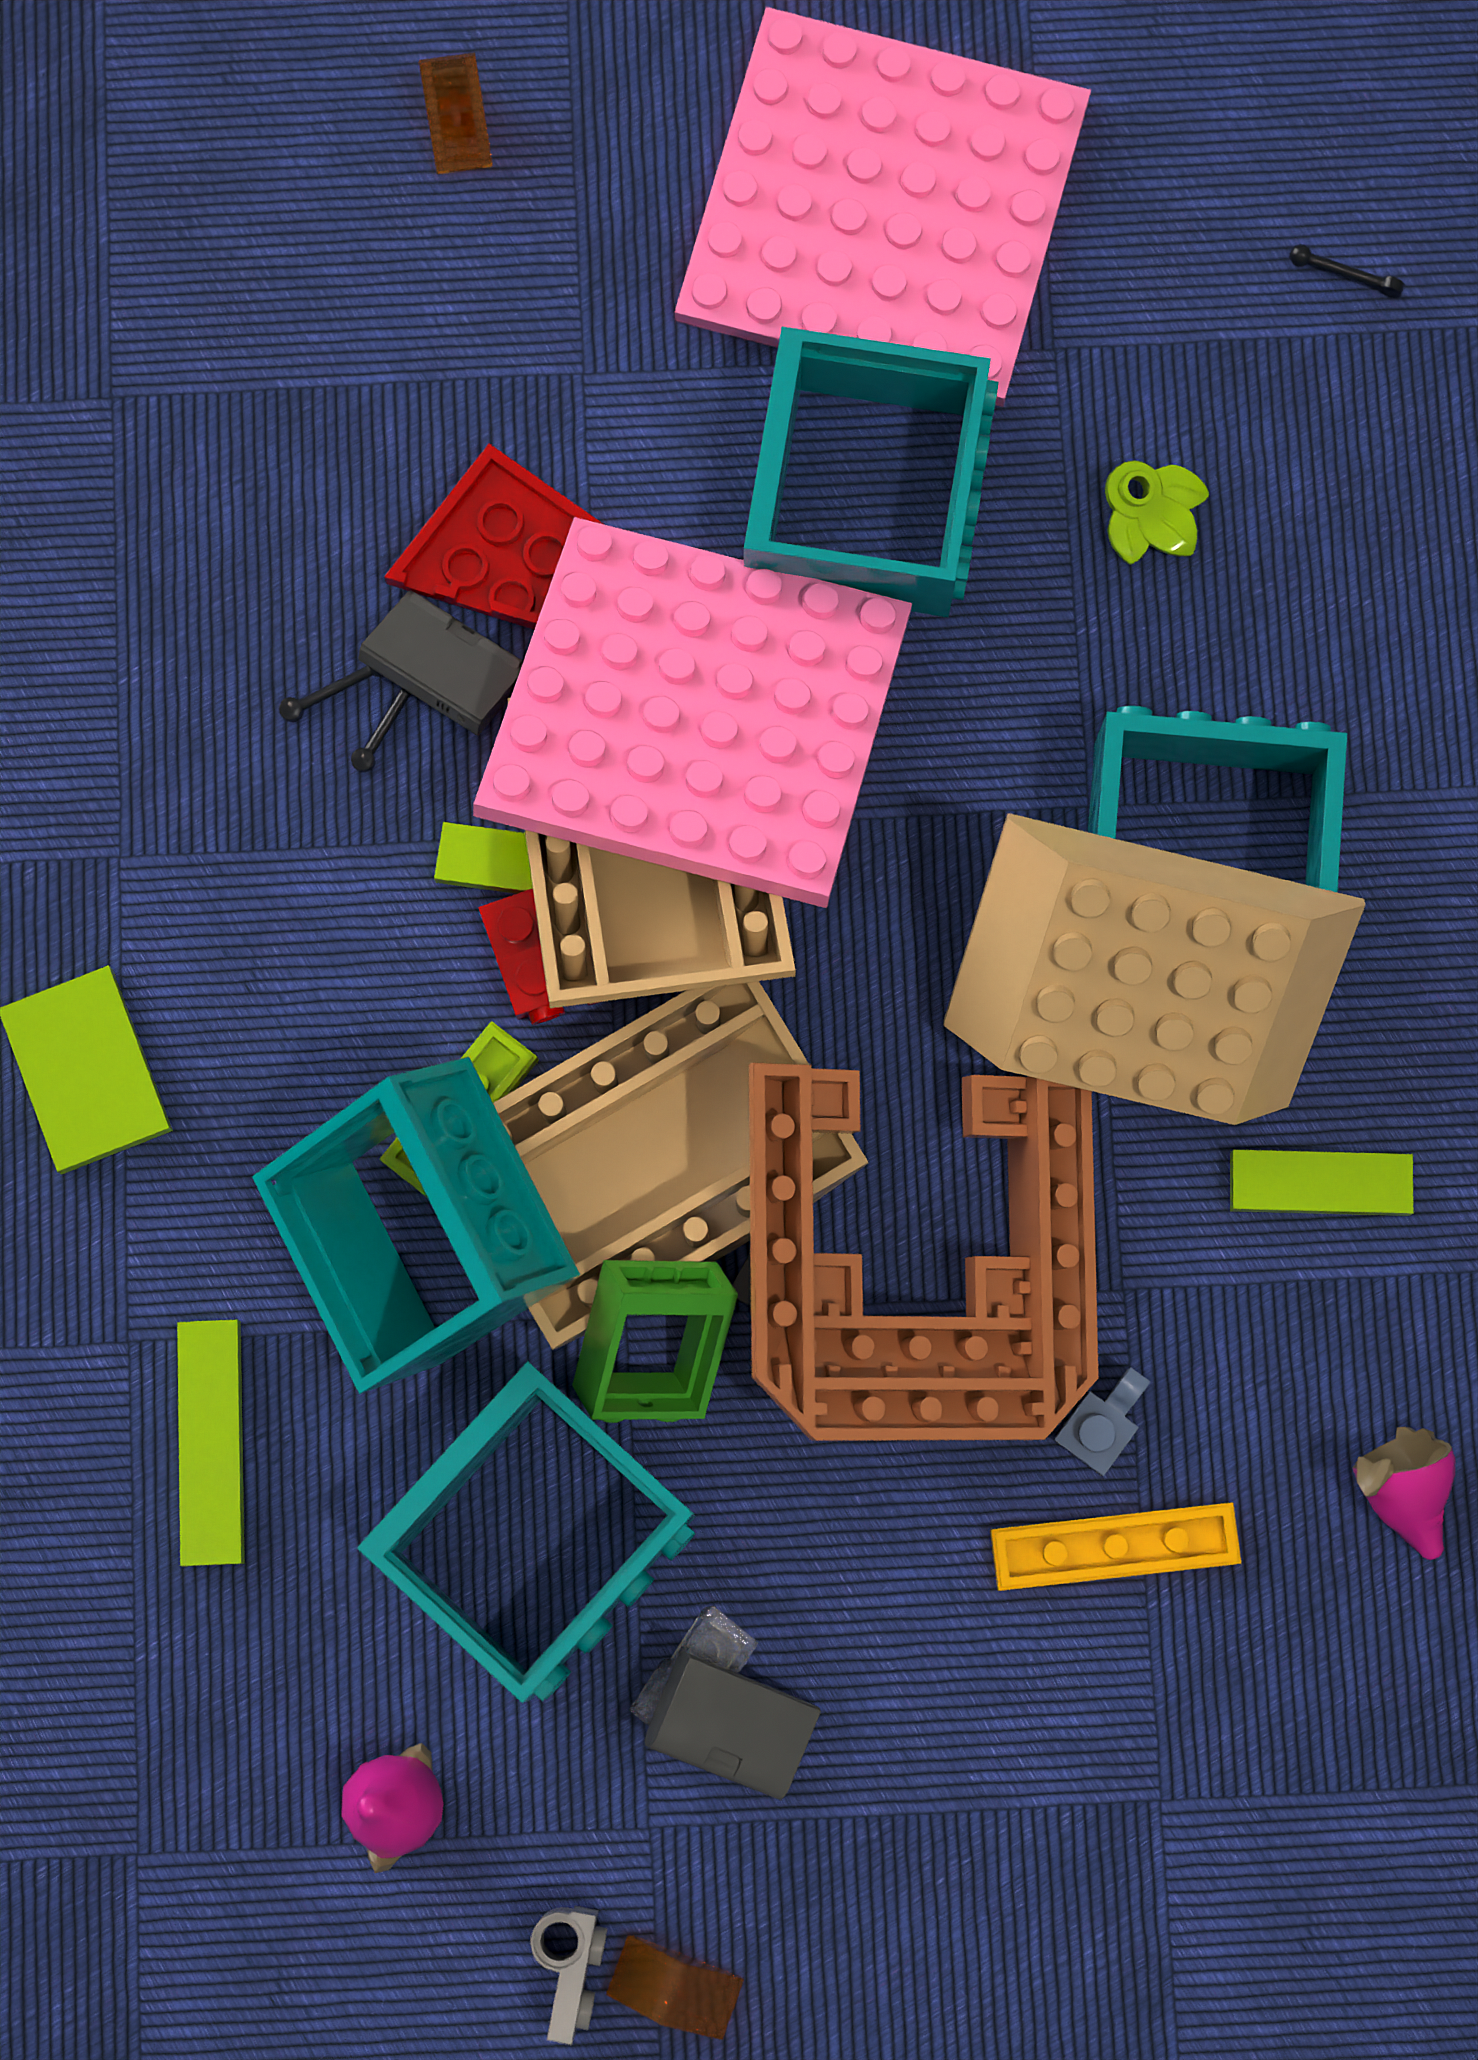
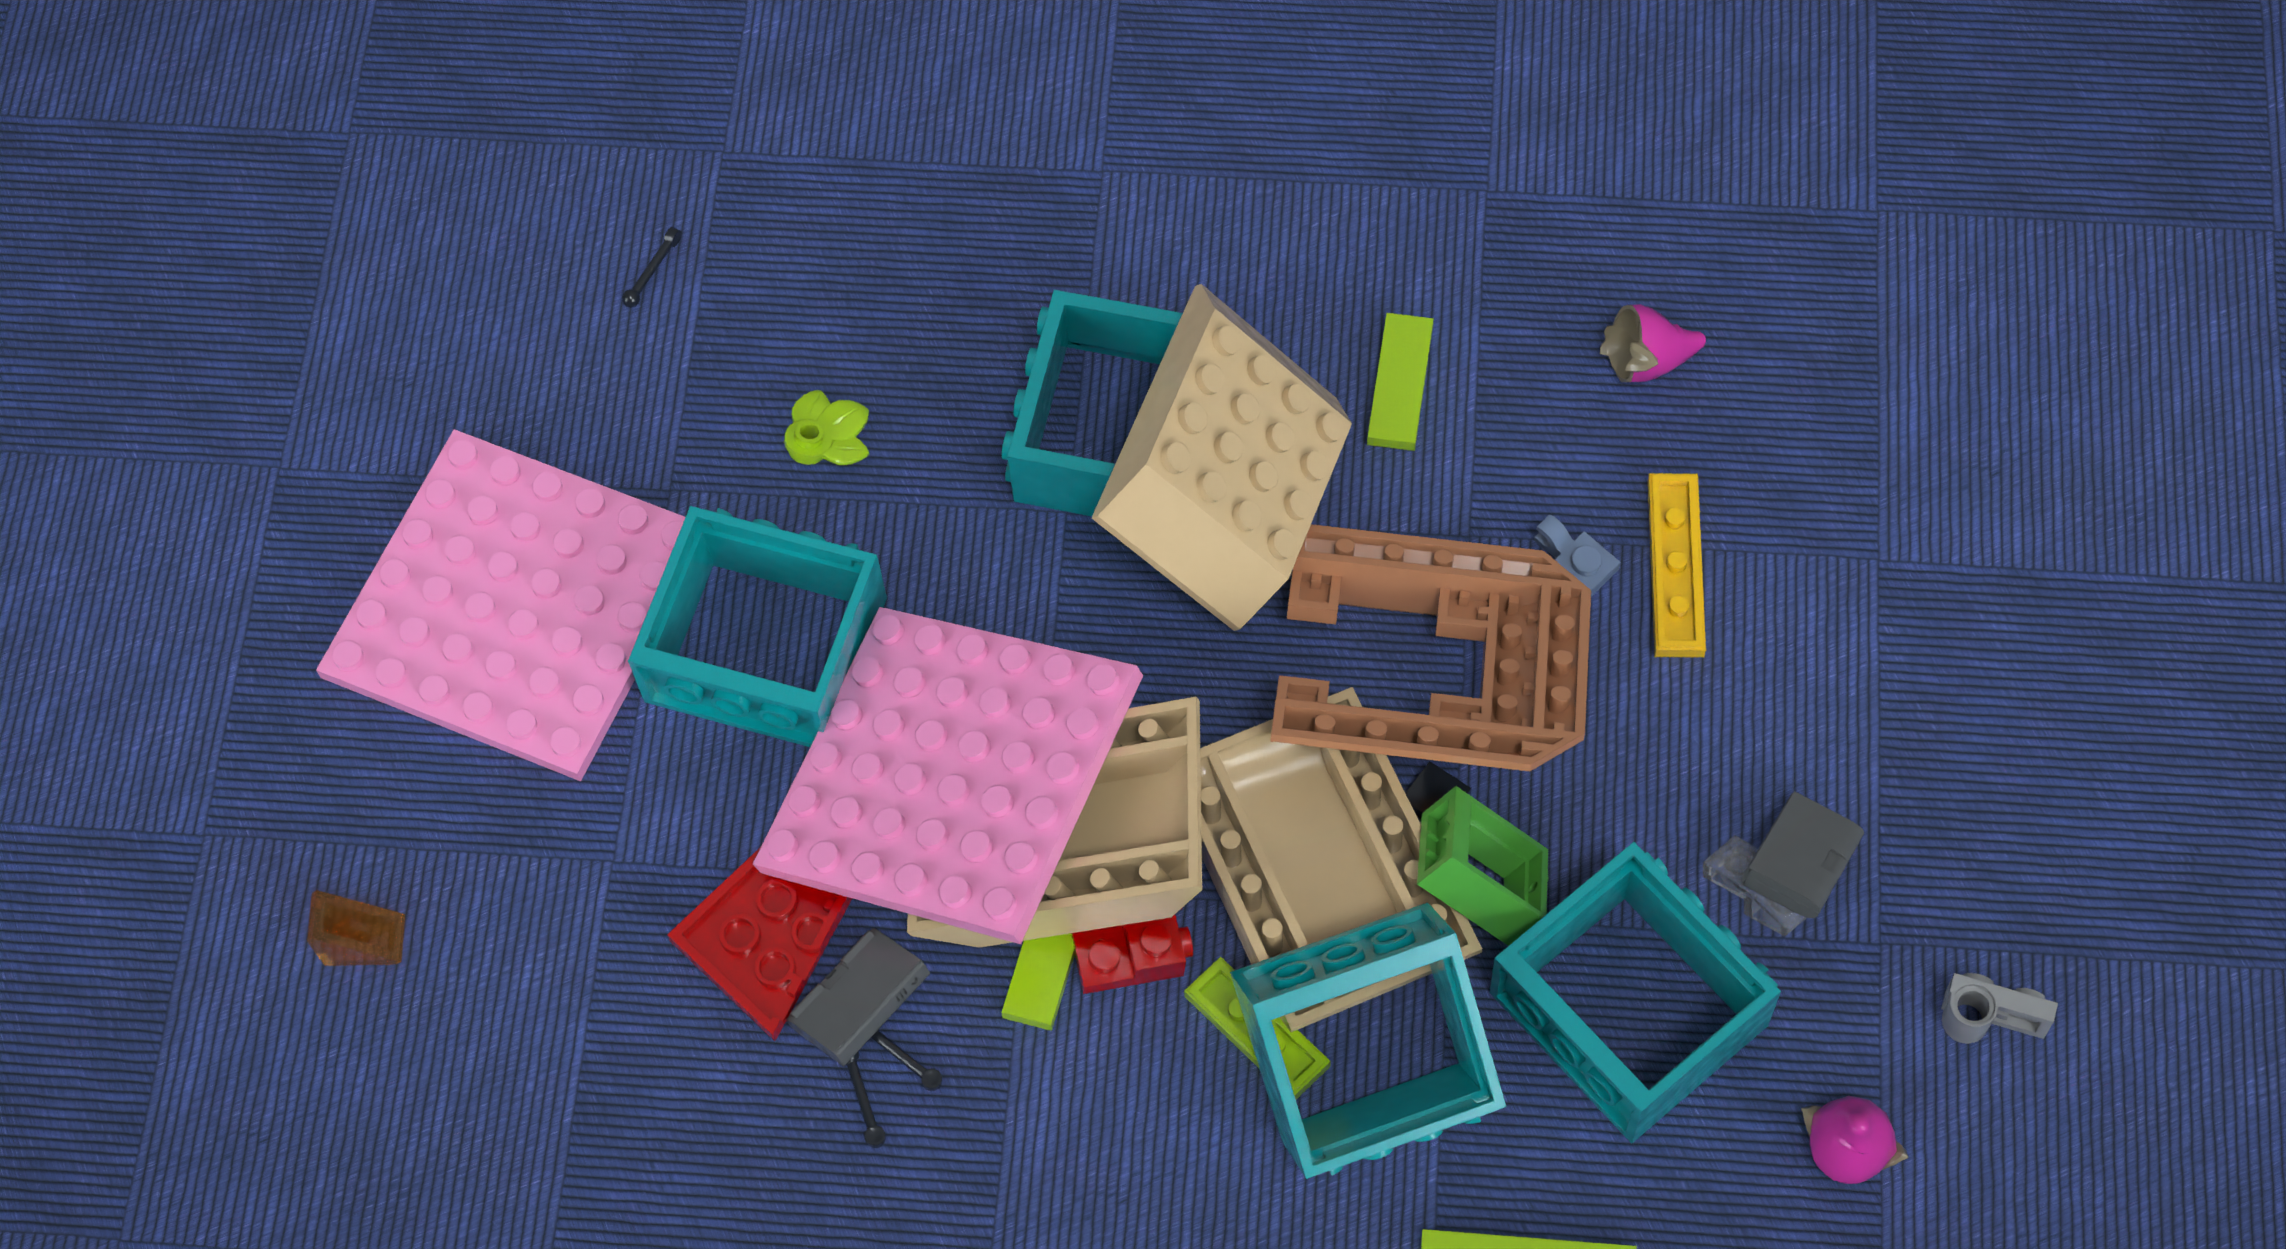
camera: 80 degrees left, 15 degrees down
(674, 1988) = (2010, 935): clear orange slope -> none

